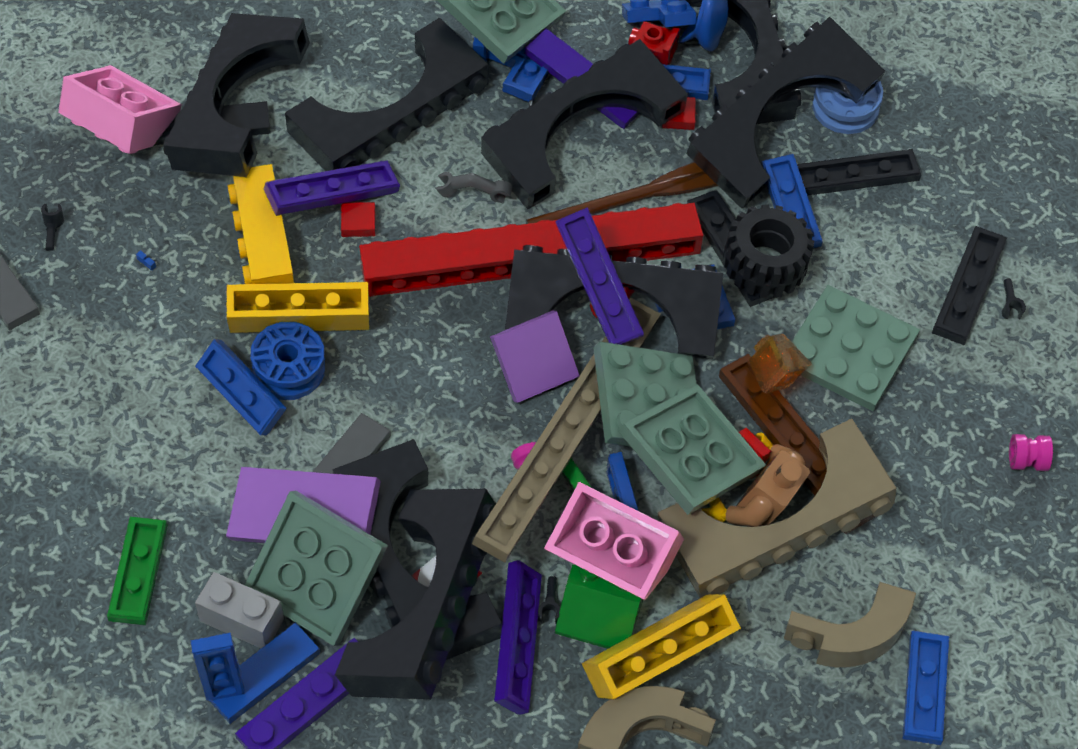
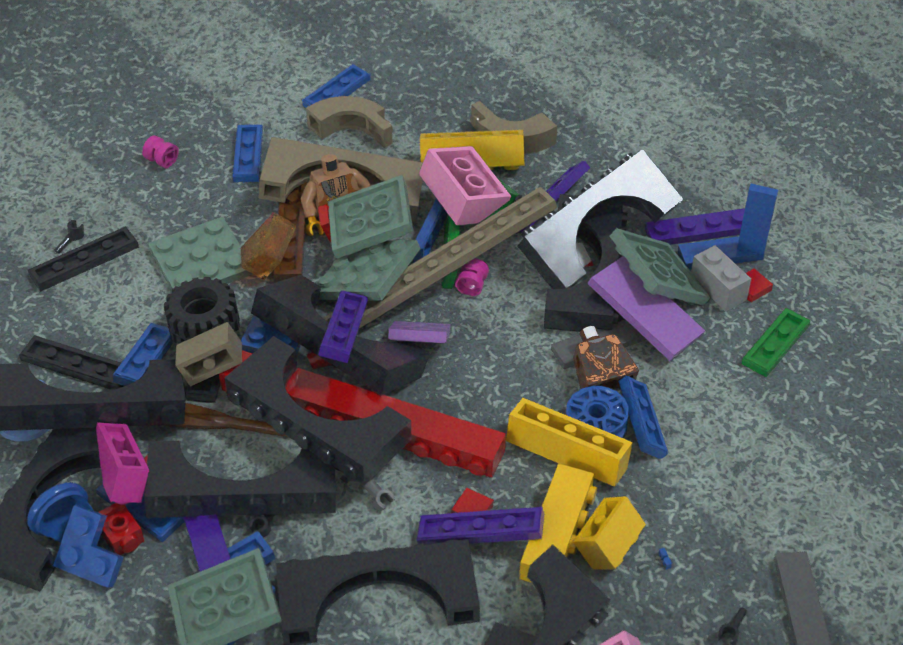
camera: 145 degrees left, 10 degrees down
(196, 629) = (759, 285): none -> red tile
(206, 236) = (609, 533): none -> yellow brick
(314, 419) = (602, 360): none -> torso
(622, 183) = (353, 446): none -> black arch
(696, 64) = (121, 463): none -> dark pink slope
(715, 205) = (208, 354): none -> dark tan brick
(938, 520) = (248, 153): none -> blue tile

